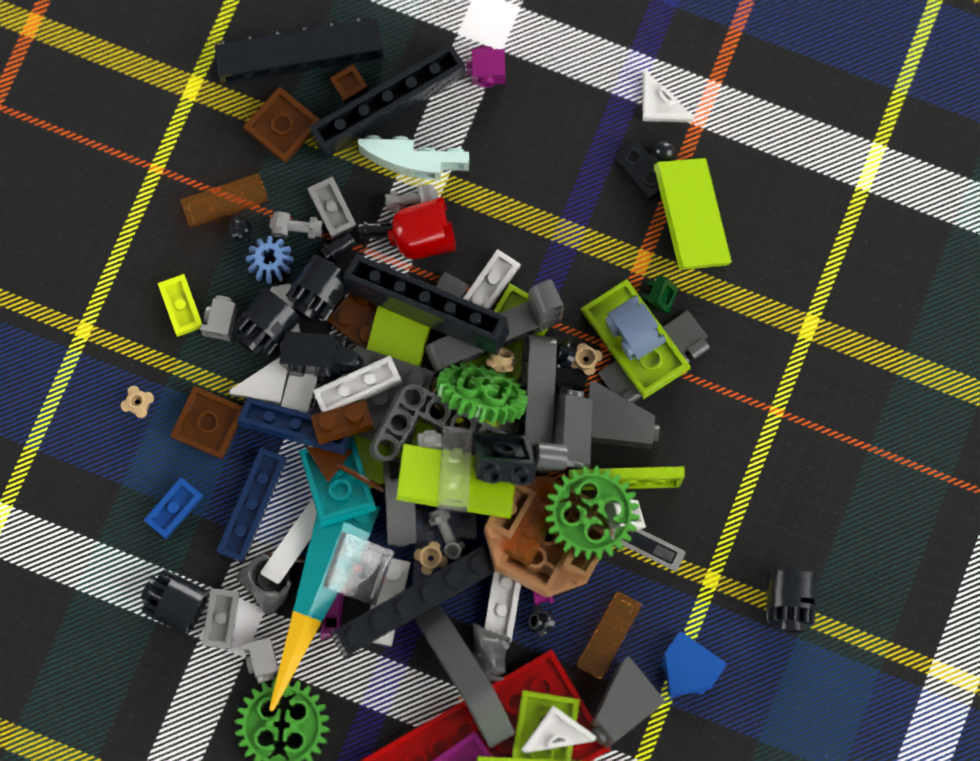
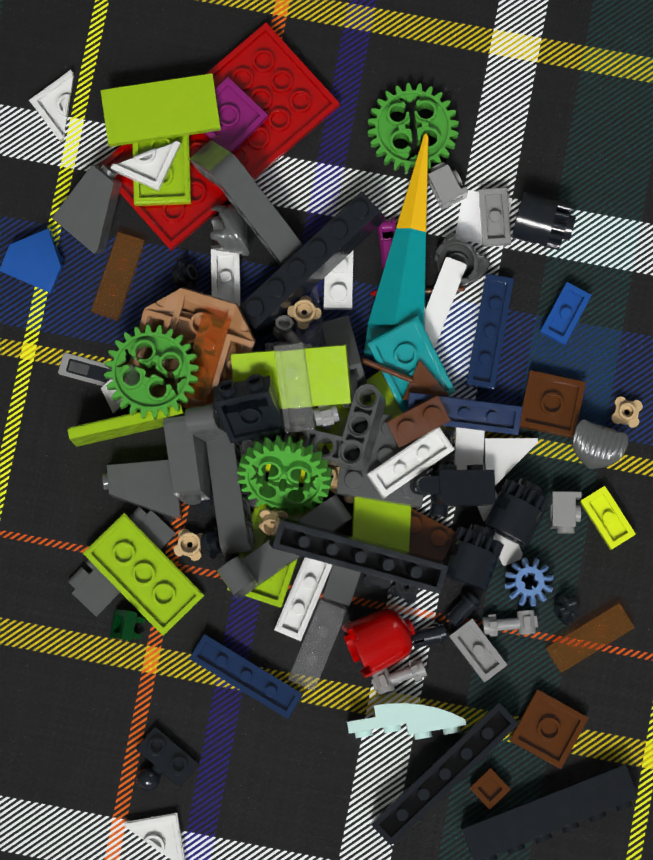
camera: 175 degrees right, 5 degrees up
(171, 372) = (598, 445): none -> dark grey hair
(358, 568) = (371, 283): clear plate -> none
(482, 243) = (317, 645): none -> clear tile
(486, 66) = (350, 835): magenta brick -> none
(555, 226) = (246, 676): none -> dark blue plate
(635, 328) = (143, 574): sand blue brick -> none
(692, 213) = (107, 716): lime tile -> none

